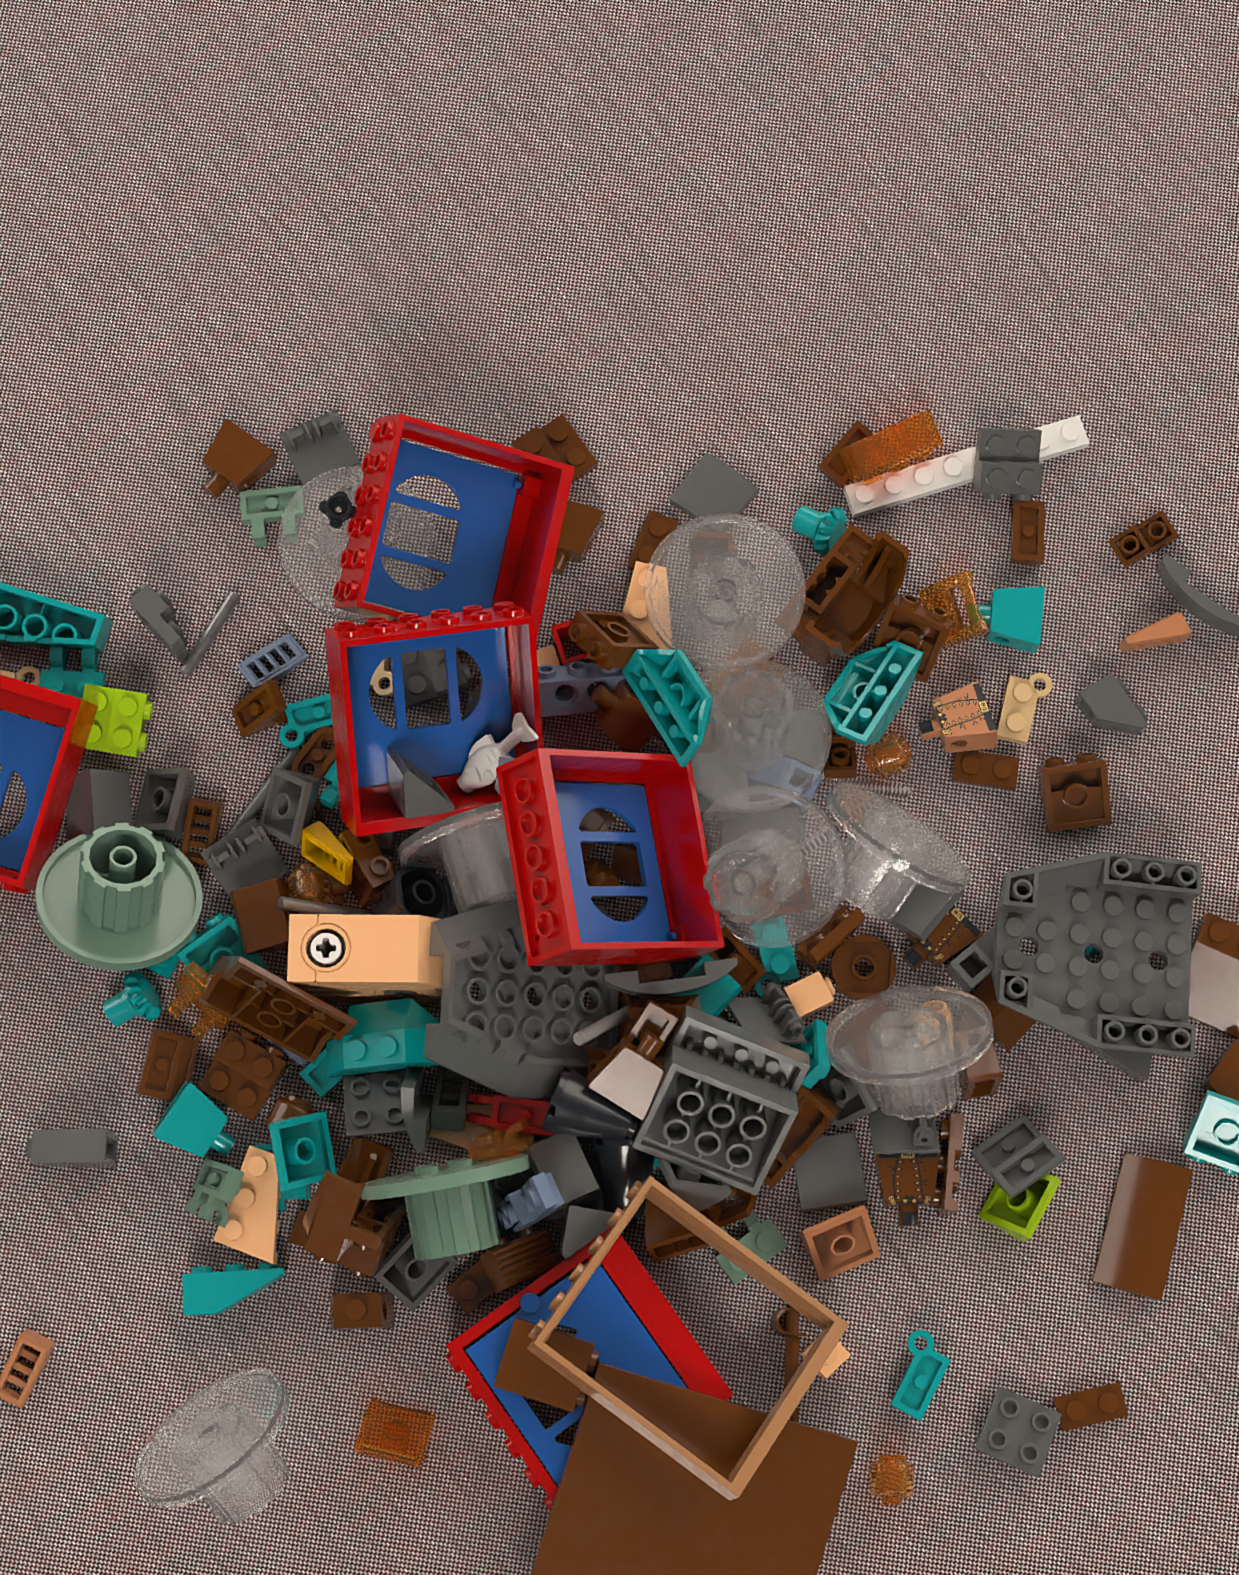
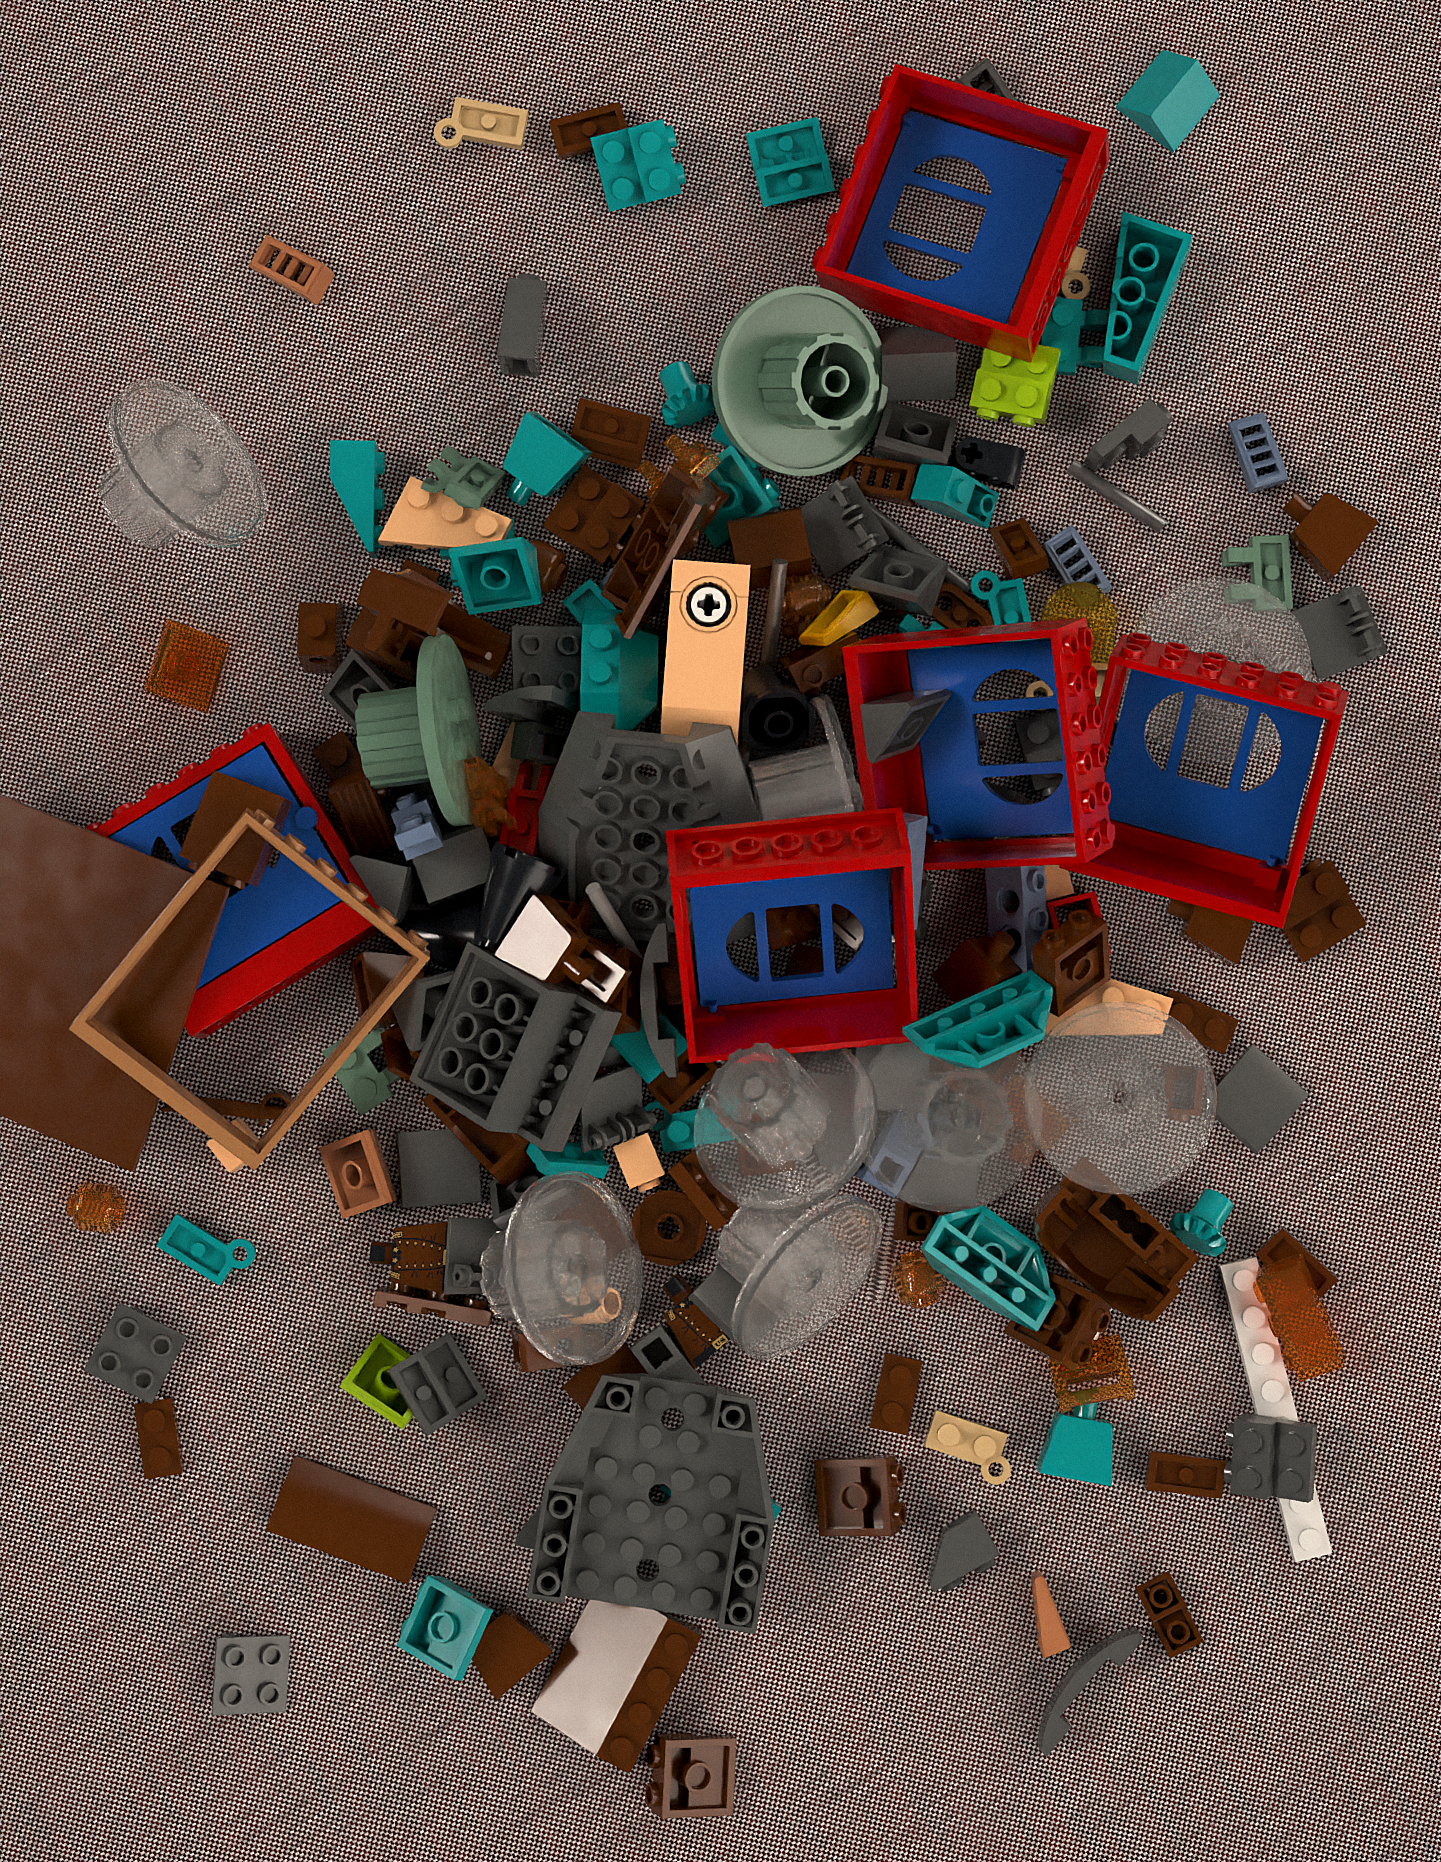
camera: 95 degrees right, 10 degrees up
(174, 507) = (1253, 482): none -> sand blue slope
(184, 734) = (993, 463): none -> black piece
(214, 766) = (954, 495): none -> teal slope
(308, 657) = (1087, 601): none -> clear yellow slope
(341, 500) = (1244, 632): black plate -> none
(485, 753) = (938, 804): white animal -> none
(961, 721) = (953, 1369): nougat torso -> none

